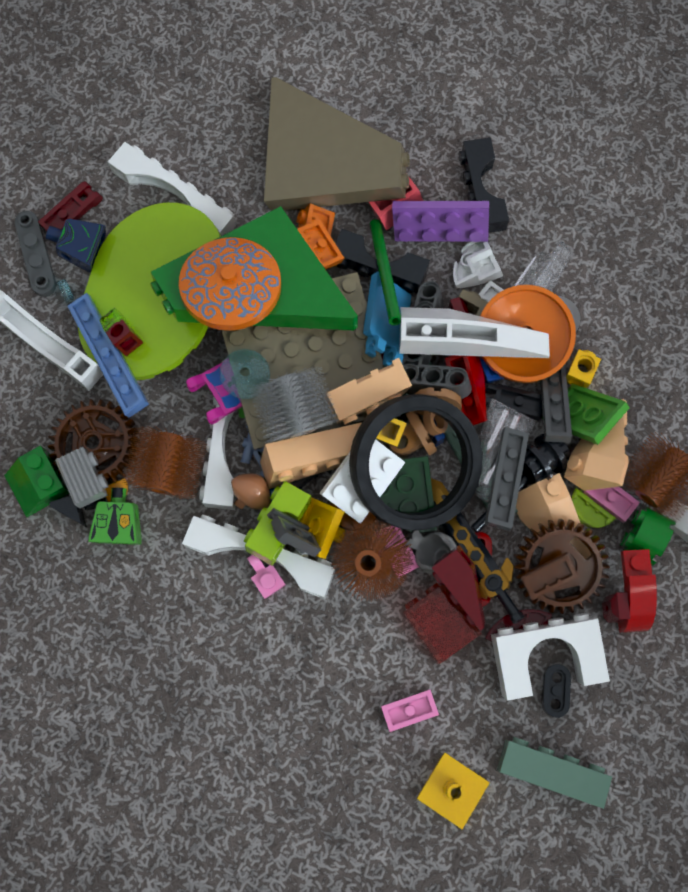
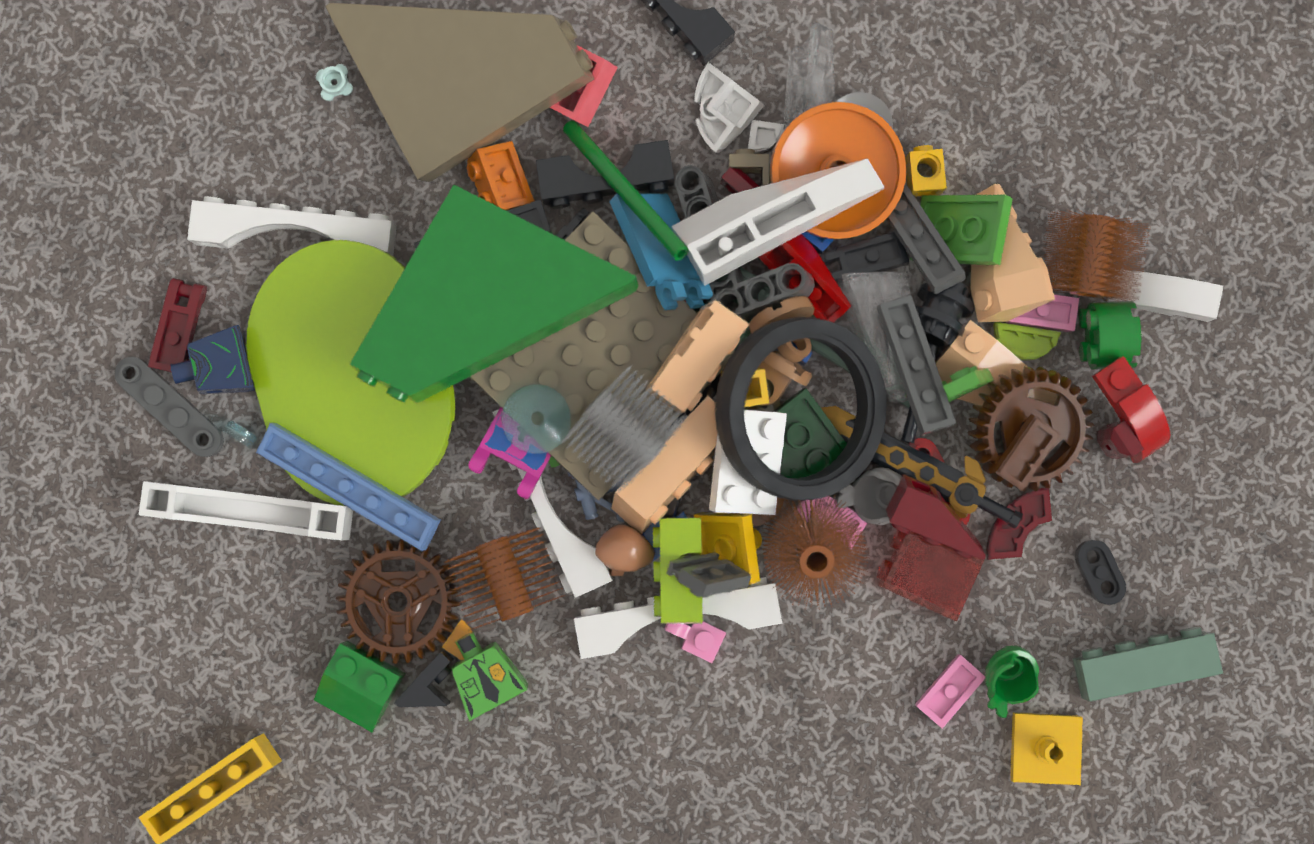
camera: 30 degrees left, 10 degrees up
(82, 477) = (417, 652): light grey brick -> none
(120, 332) = (348, 451): dark red leg -> none
(230, 283) = (457, 324): orange dish -> none
(253, 119) = (331, 73): none -> light aqua plate
(321, 244) = (525, 199): orange bracket -> none
(441, 221) = (654, 82): medium lavender plate -> none
(455, 724) = (1010, 678): none -> green hat
(514, 647) = (1029, 550): white arch -> none
(533, 508) = (966, 382): none -> bright green plate

